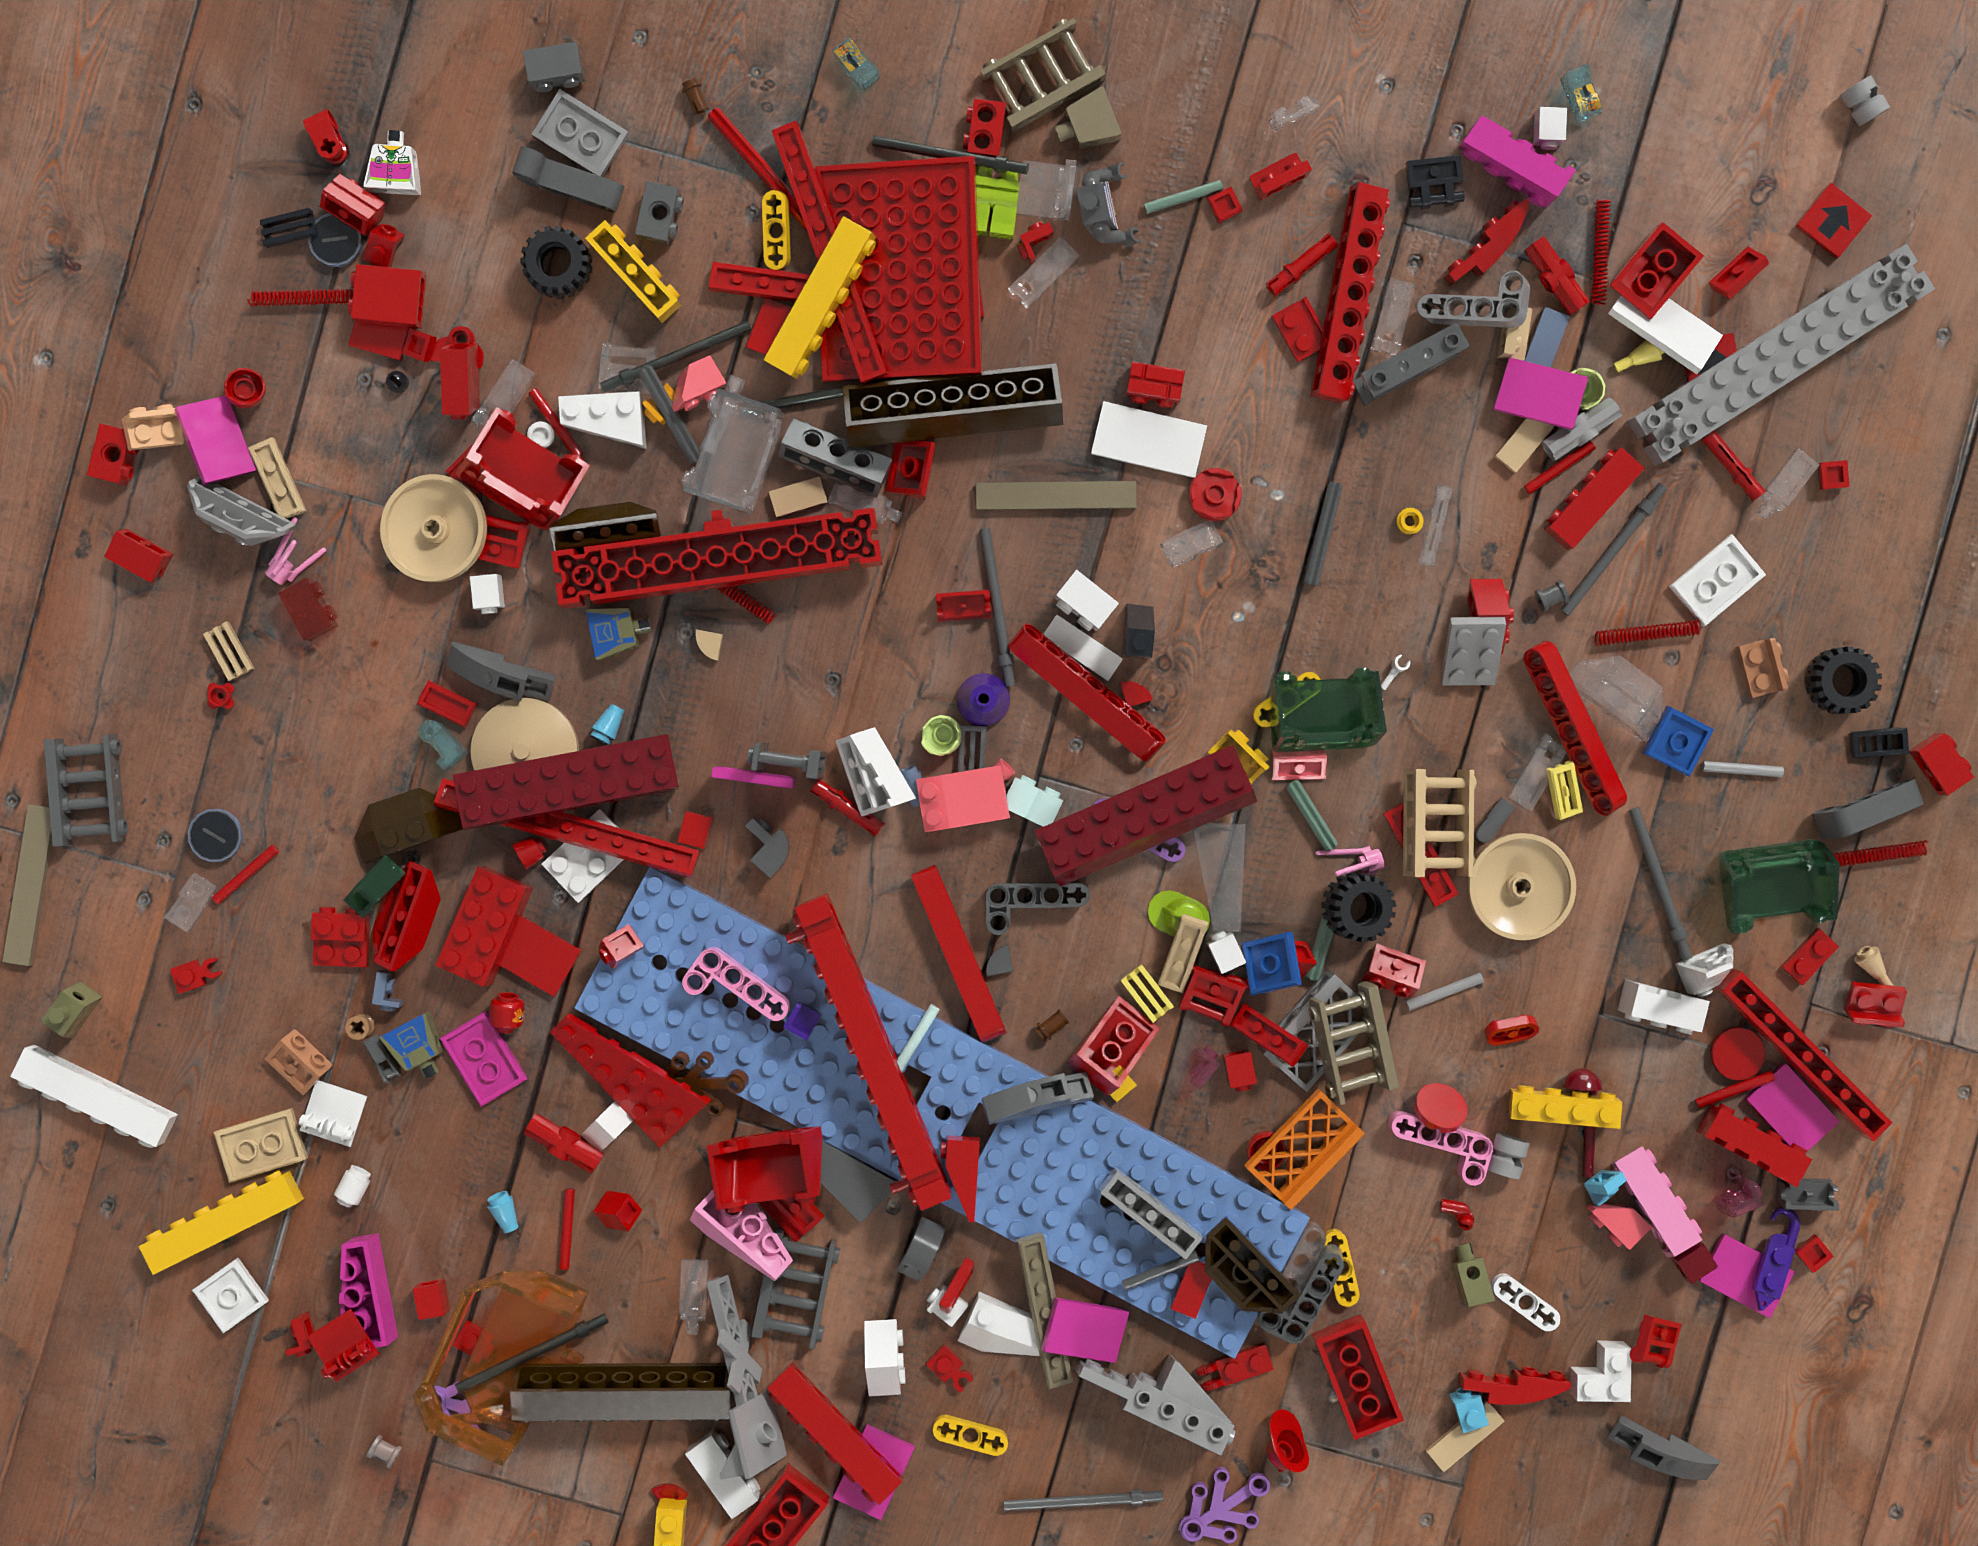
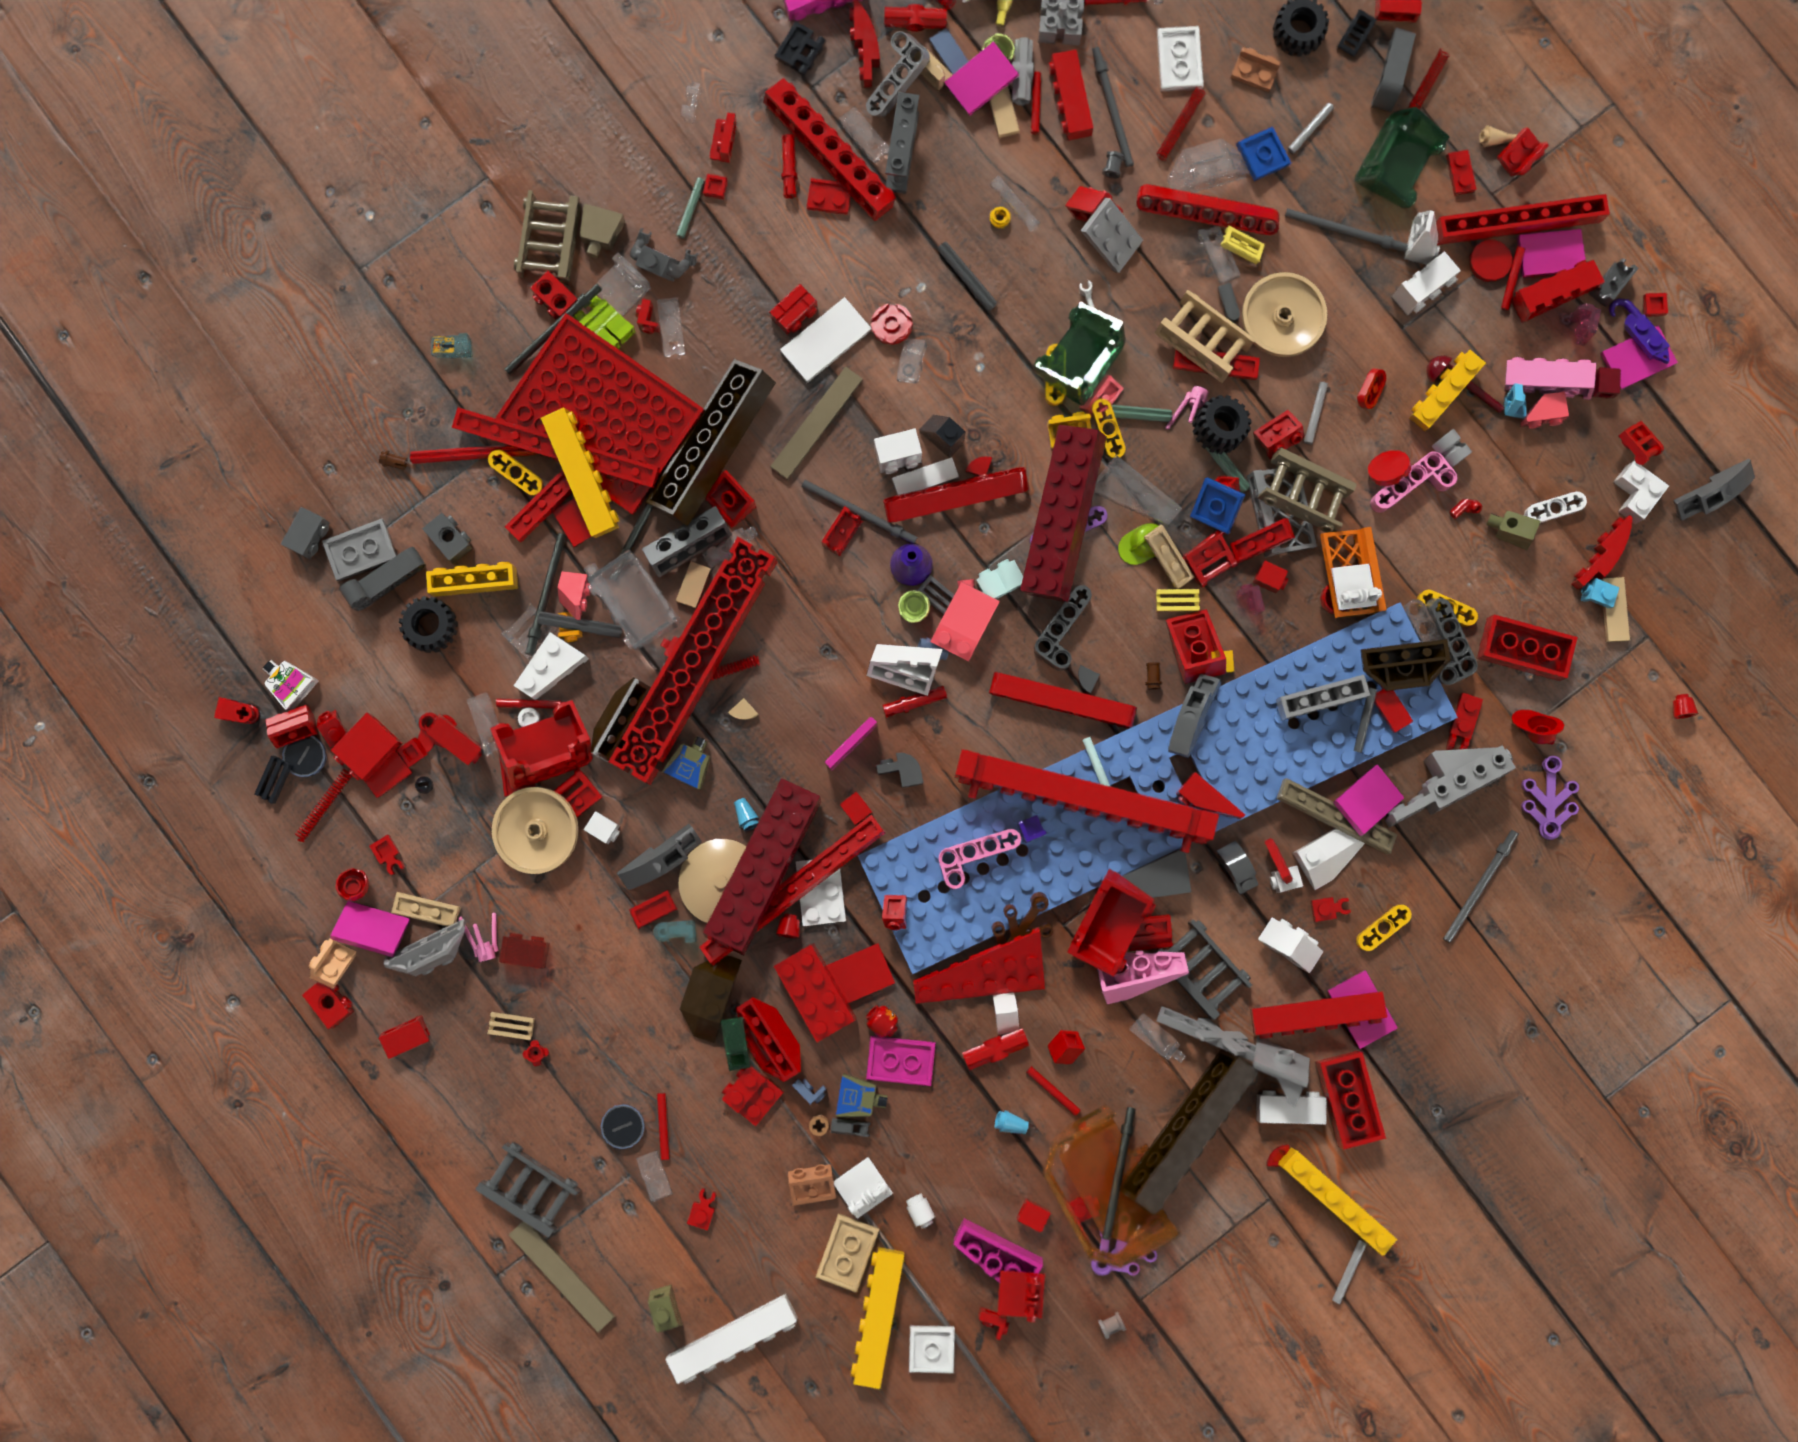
camera: 55 degrees left, 5 degrees down
(302, 395) = (385, 852): none -> red plate
(811, 764) = (871, 697): dark grey fence -> none
(1225, 951) = (1187, 530): white brick -> none
(1287, 783) = (1109, 411): none -> yellow beam
(1289, 1162) = (1354, 587): none -> white hinge

